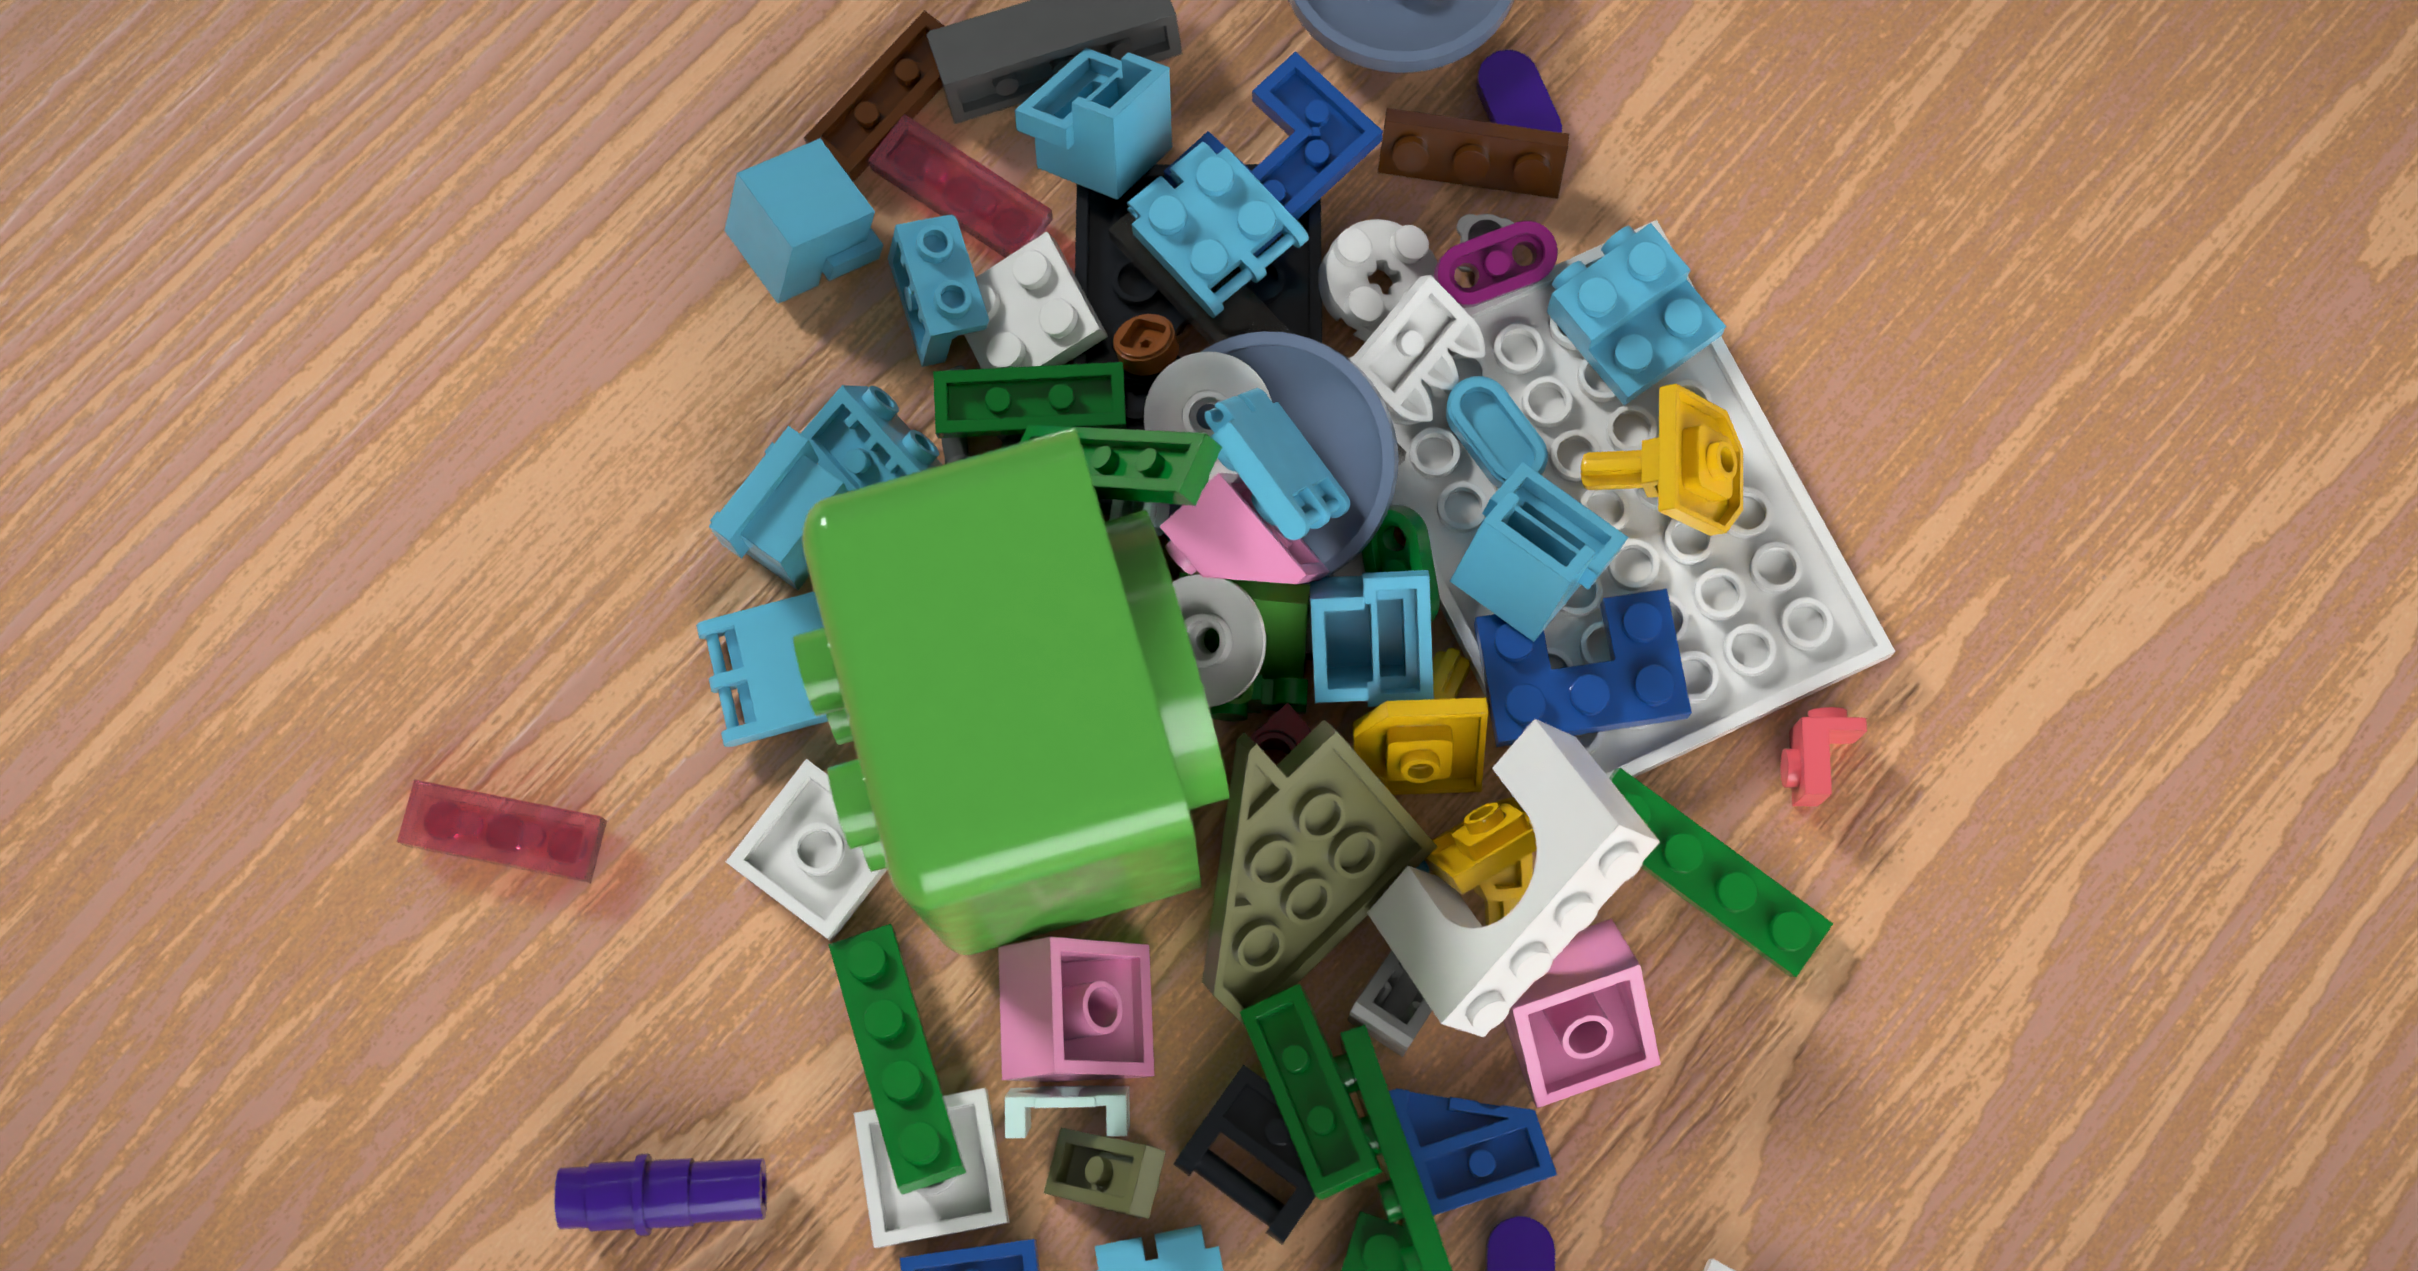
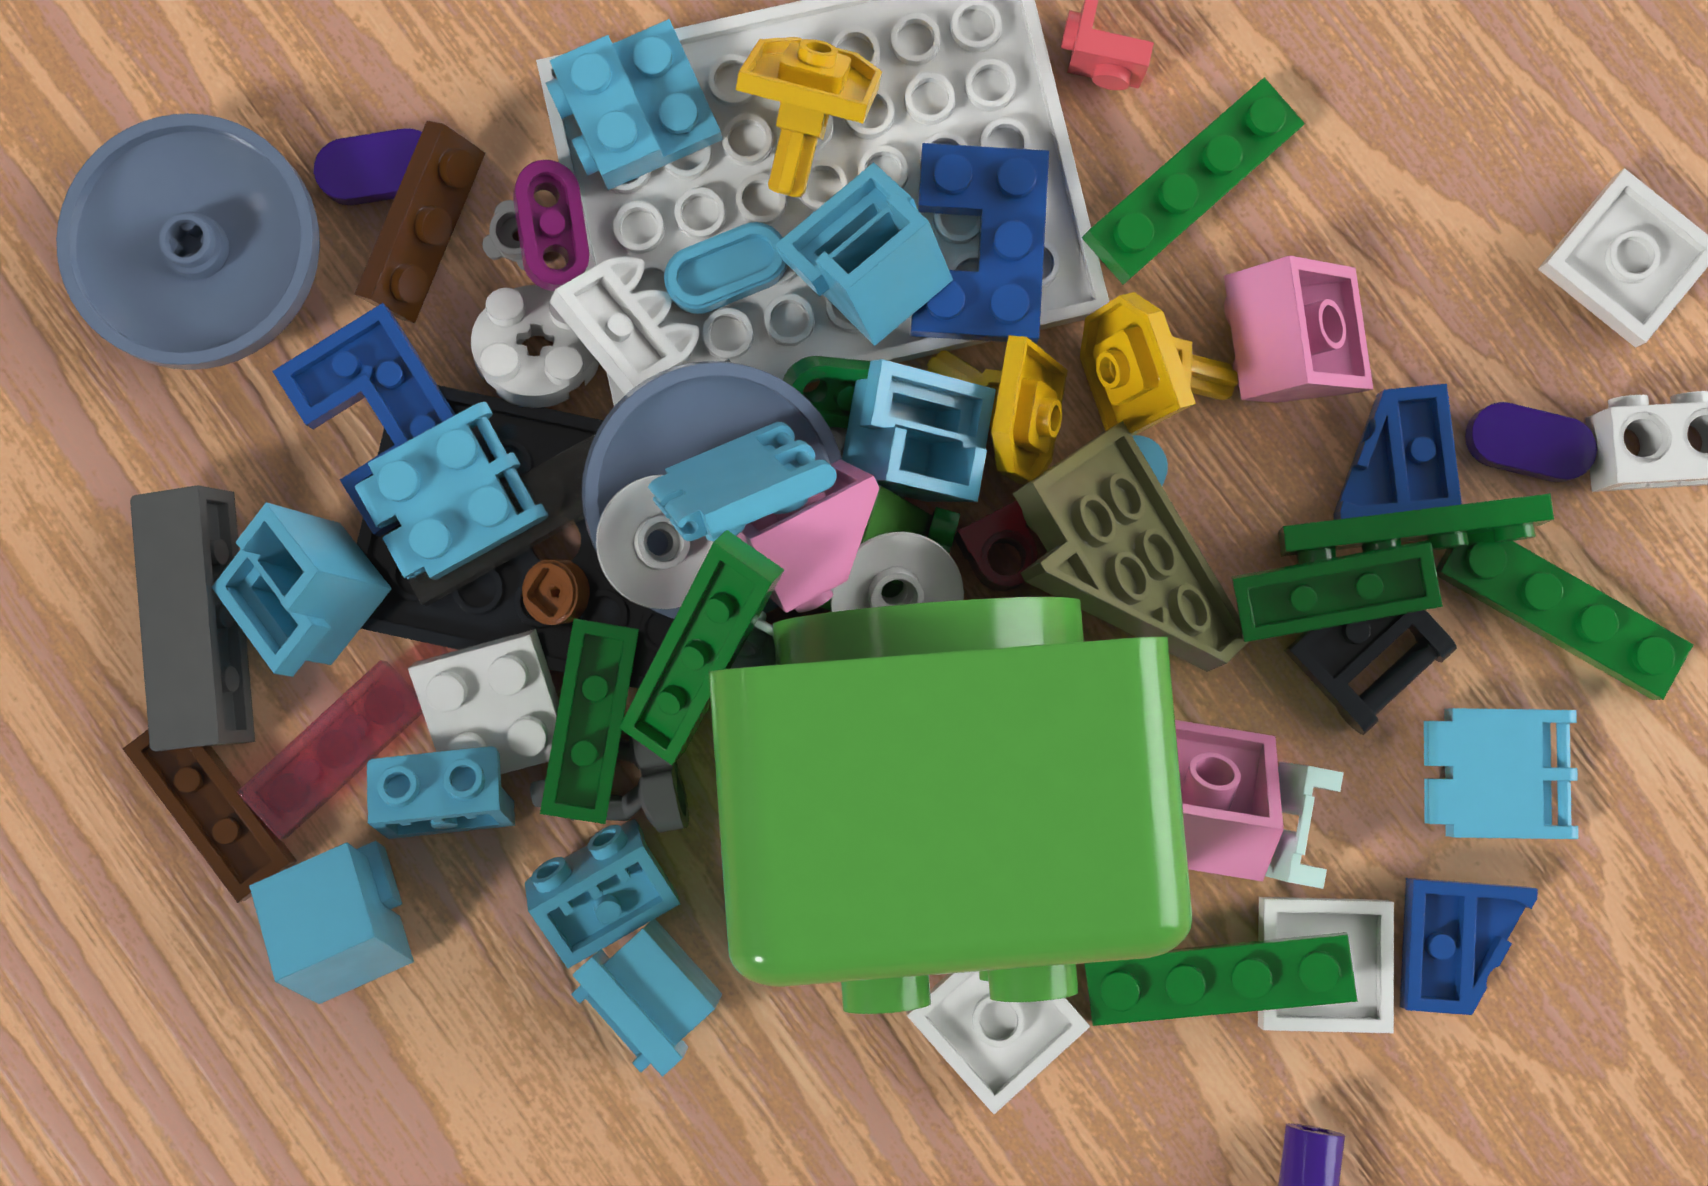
camera: 85 degrees left, 10 degrees up
(762, 667) = (802, 1034): medium azure plate -> none
(1105, 1172) = (1373, 797): olive slope -> none
(1391, 1007) = (1254, 487): light grey slope -> none
(1585, 851) = (1195, 271): white arch -> none

